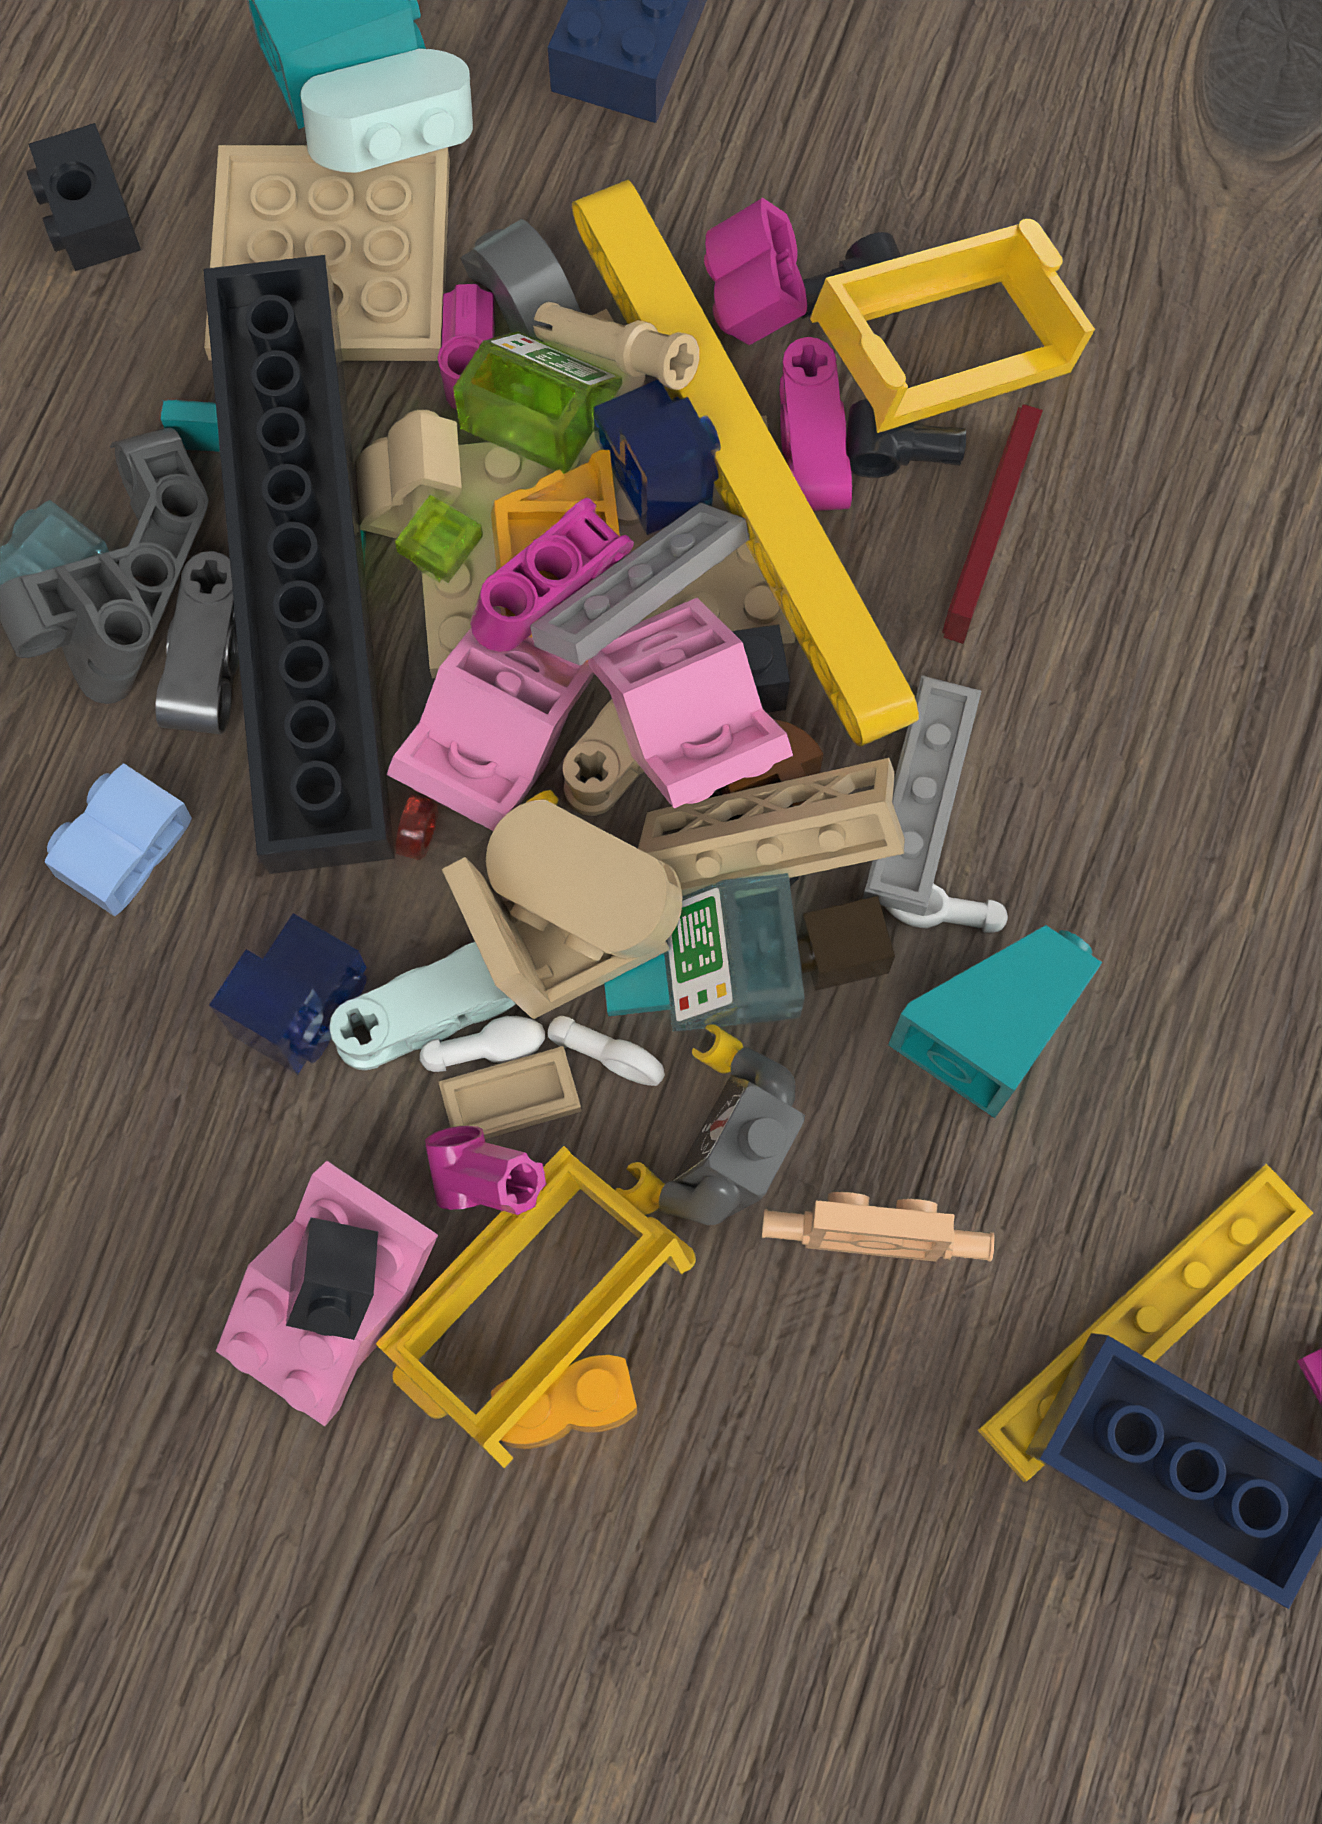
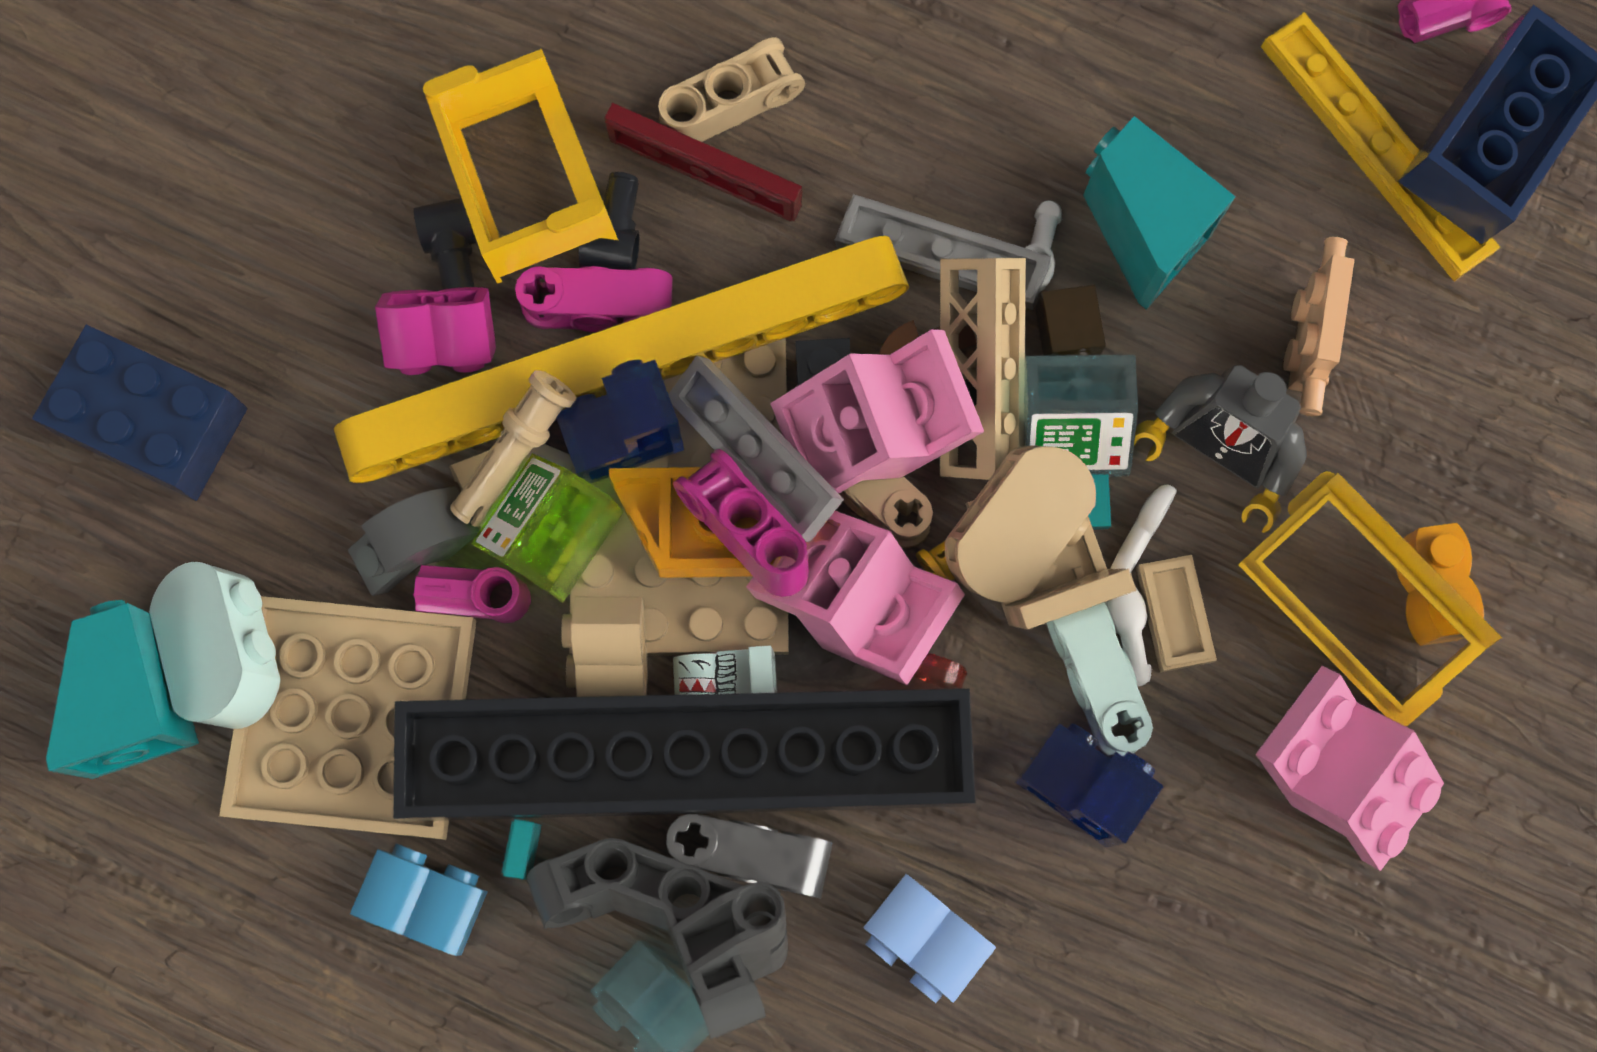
camera: 85 degrees left, 5 degrees up
(83, 198) = (220, 952): black brick -> none
(140, 338) = (419, 900): none -> dark azure brick
(332, 1279) = (1369, 748): black brick -> none
(394, 610) = (726, 672): none -> light aqua leg
(438, 539) = (684, 623): clear neon green tile -> none
(476, 1172) = (1255, 640): dark pink piece -> none
(1102, 575) = (758, 77): none -> tan piece

